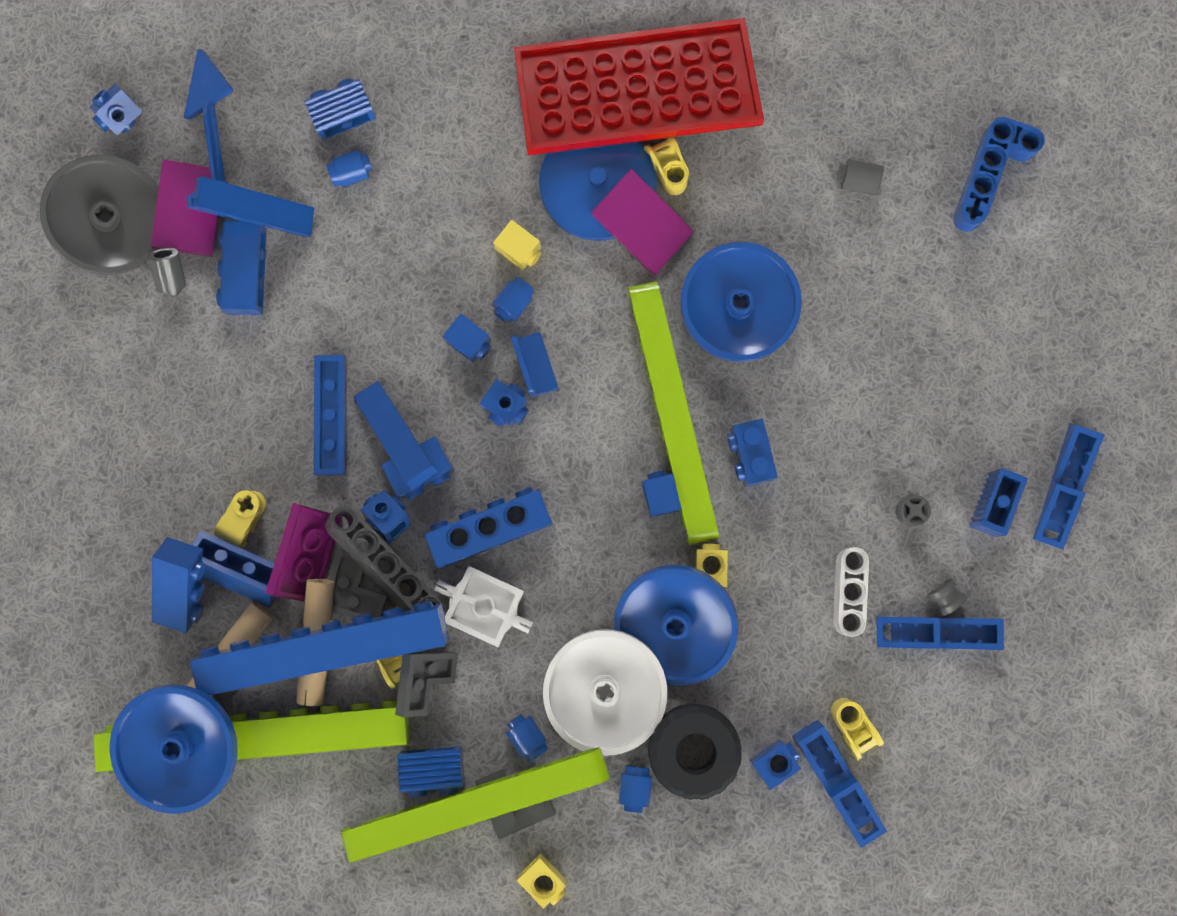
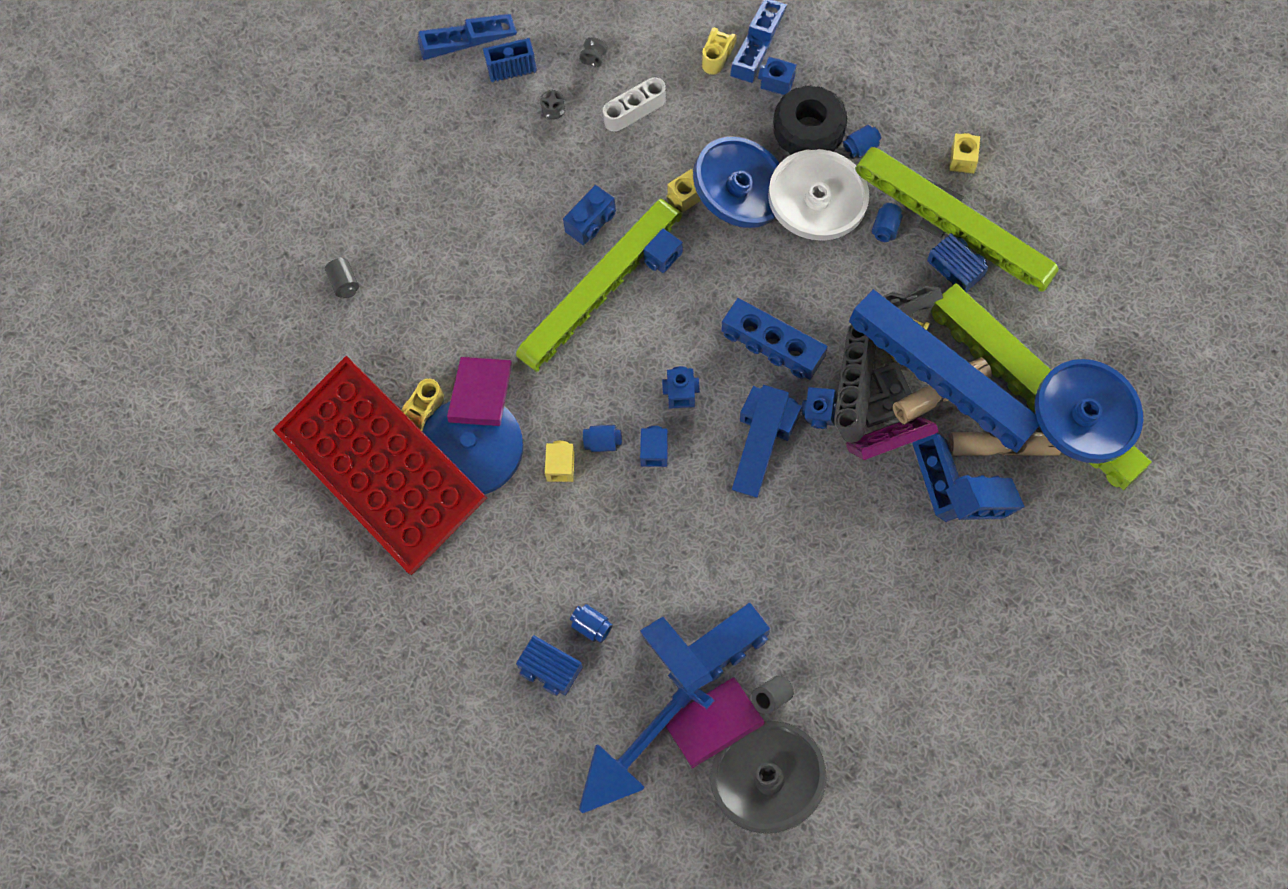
camera: 125 degrees left, 15 degrees down
(114, 110) = (680, 839): brick -> none
(238, 520) = (907, 503): light yellow piece -> none
(330, 414) = (782, 501): blue plate -> none
(483, 606) = (826, 307): white plate -> none
(535, 364) = (637, 393): blue panel -> none
(740, 302) = (490, 289): blue dish -> none
(931, 633) = (626, 50): blue slope -> none
(988, 176) = (282, 200): blue beam -> none

